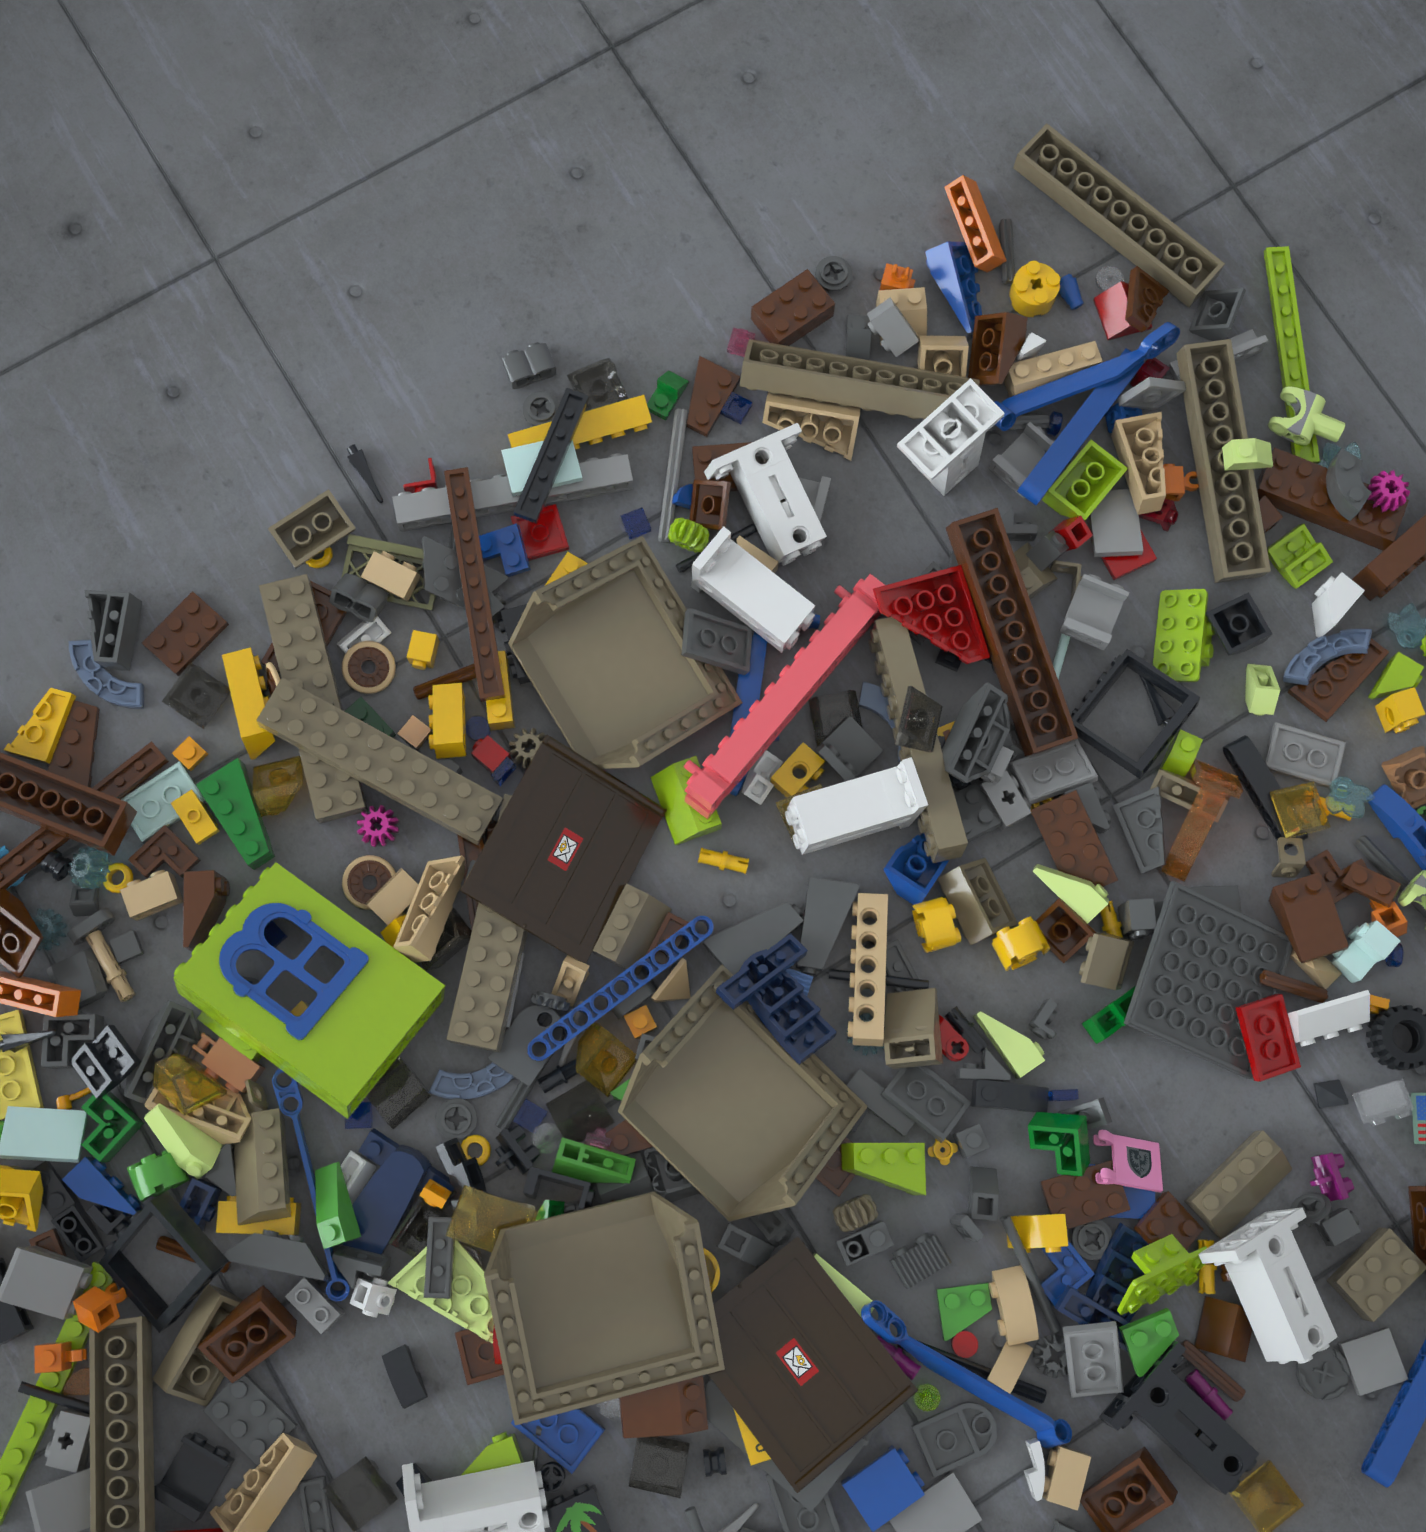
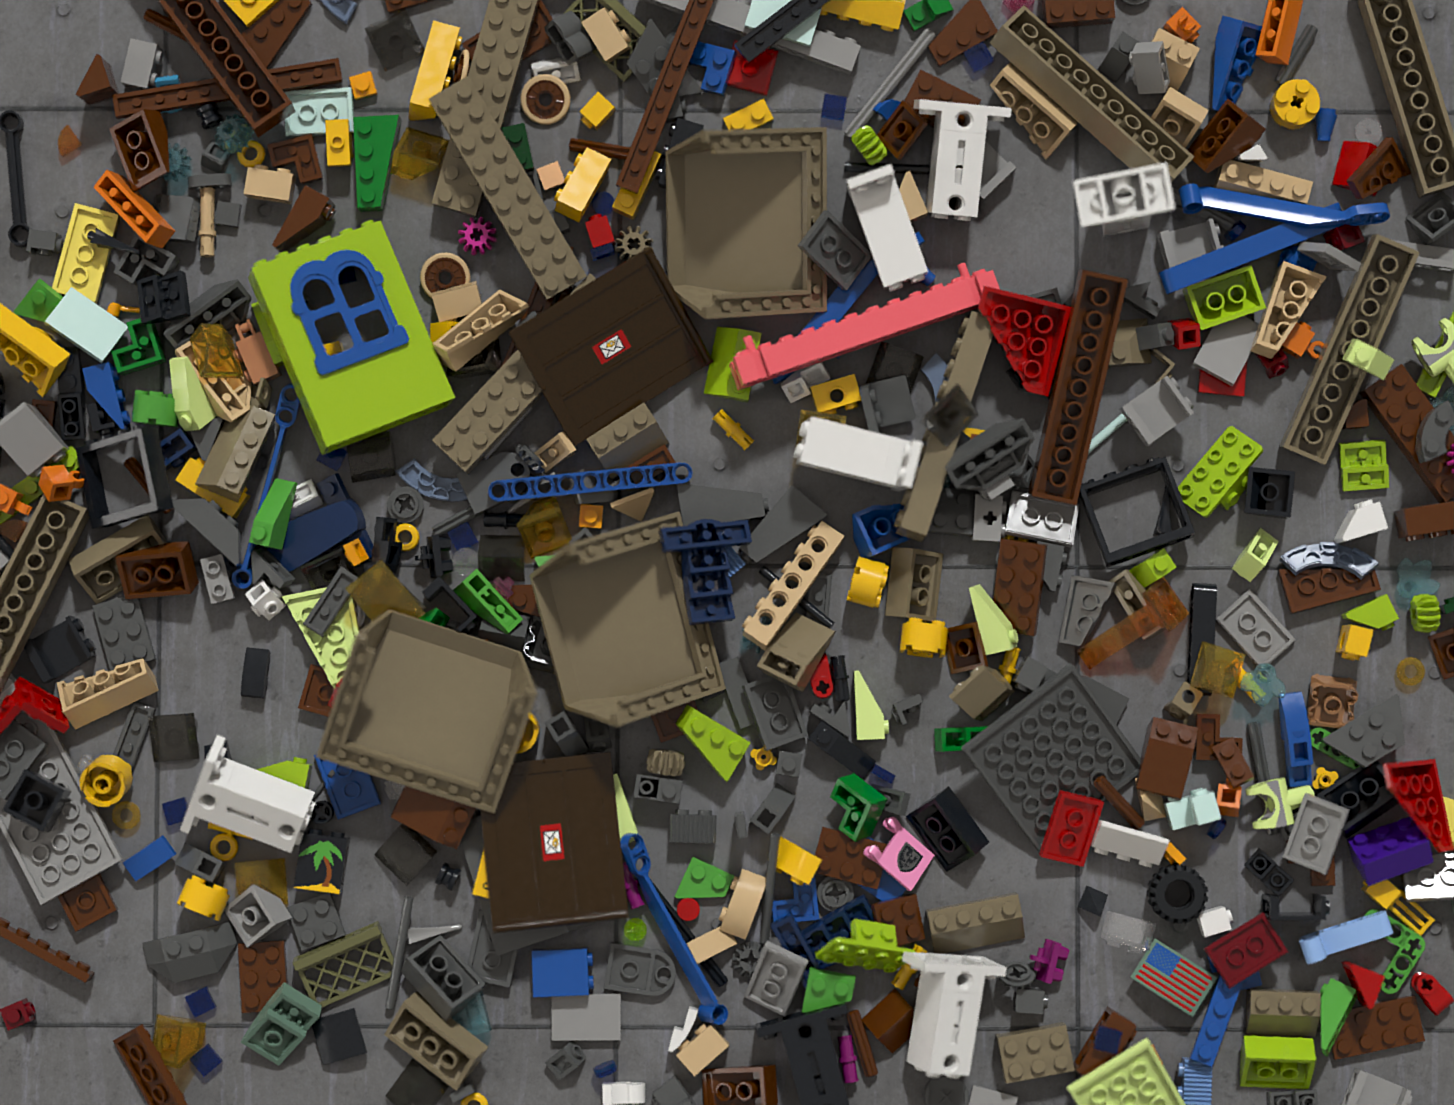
camera: 40 degrees right, 10 degrees up
(1156, 1110) = (948, 829): none -> black slope

